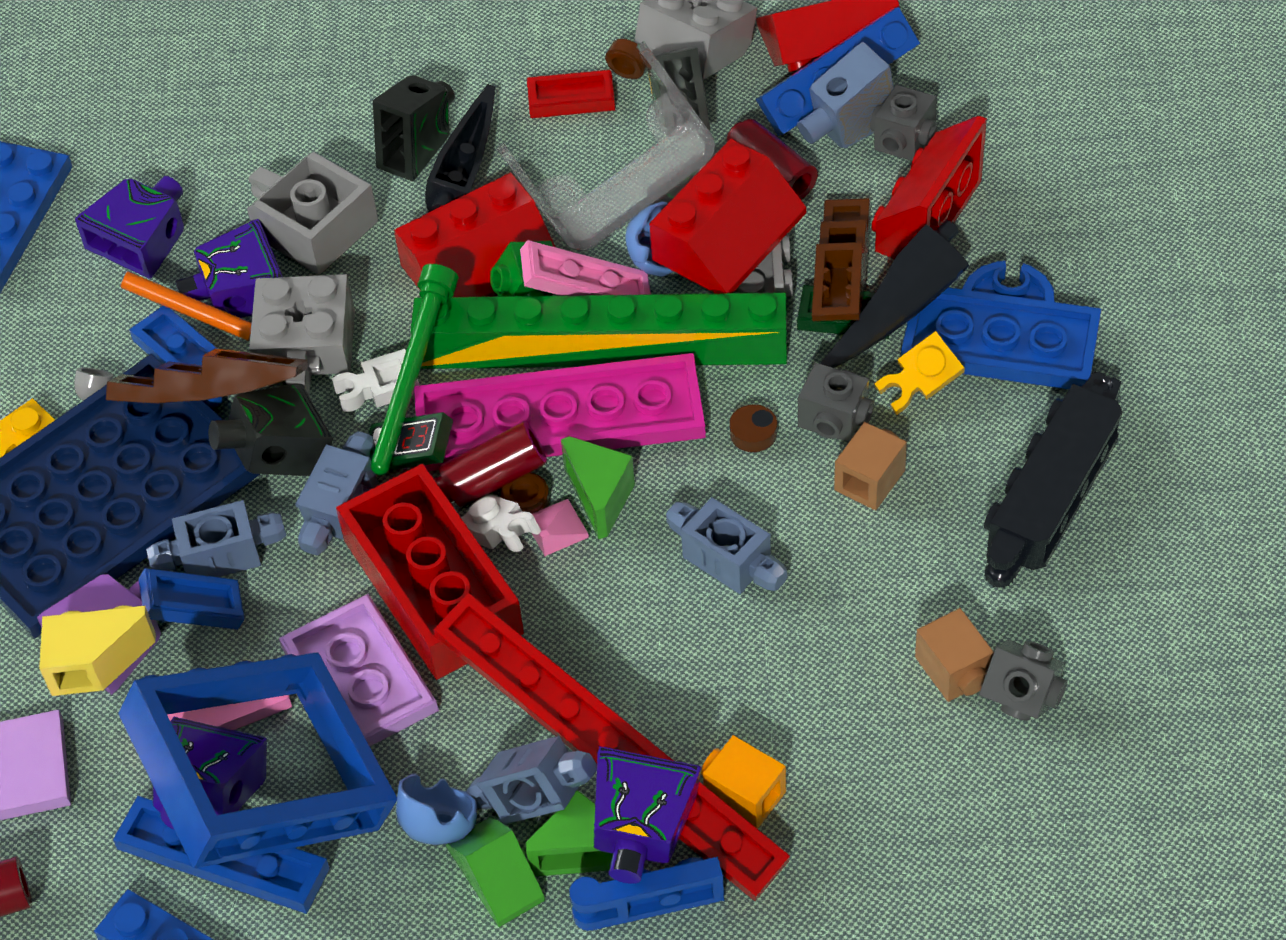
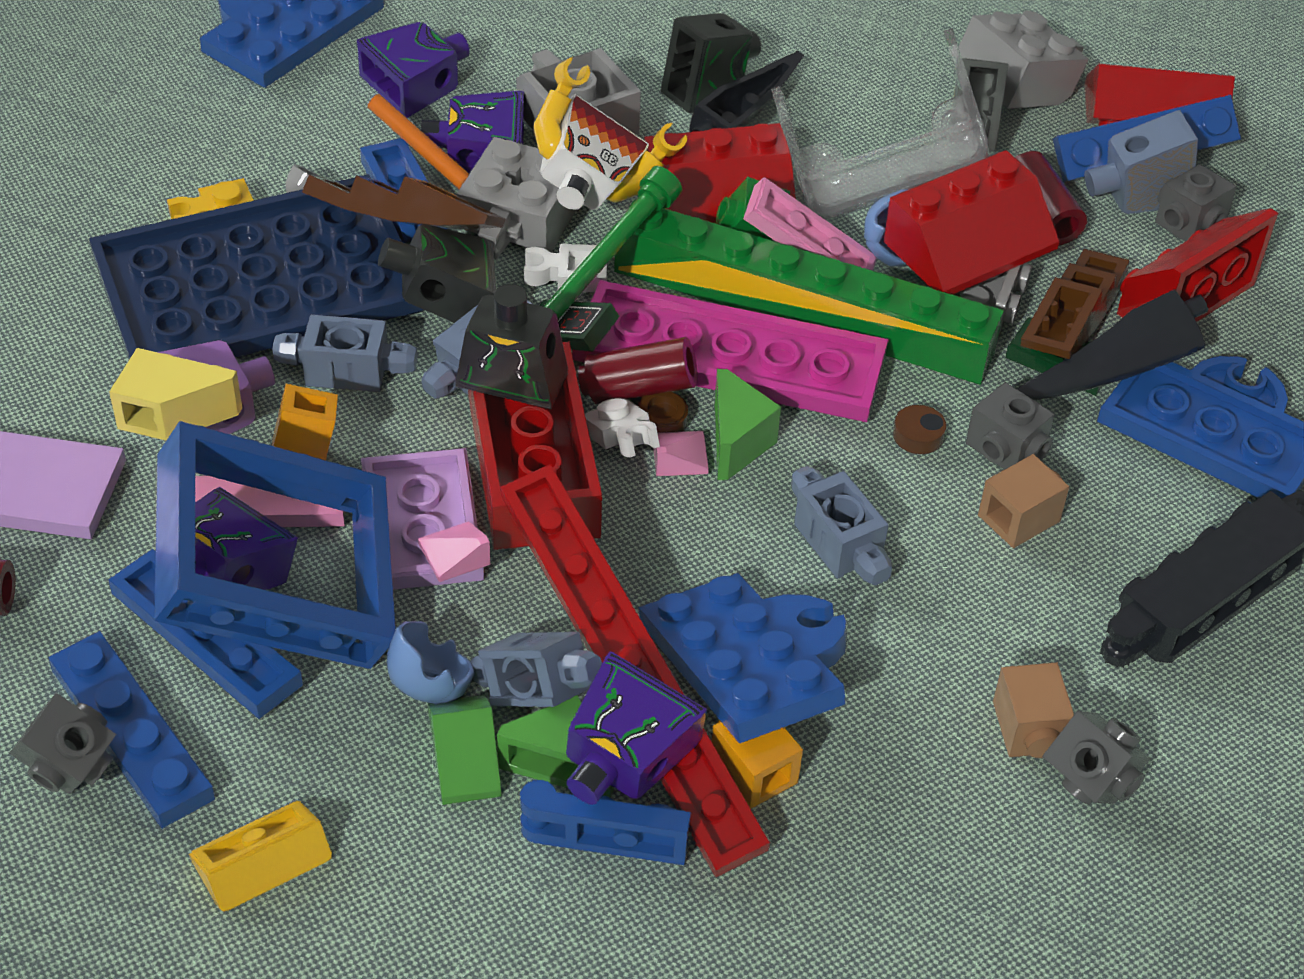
camera: 15 degrees right, 5 degrees down
(191, 598) = (269, 373): blue tile -> none
(219, 629) = (305, 421): none -> light orange brick
(356, 266) = (590, 152): none -> torso
(385, 496) = (513, 350): none -> pearl dark grey torso
(407, 695) = (456, 550): none -> bright pink slope
(570, 94) = (874, 85): red tile -> none
(625, 59) = (938, 70): reddish brown tile -> none
(704, 694) = (751, 655): none -> blue plate
(925, 369) = (1119, 429): yellow plate -> none

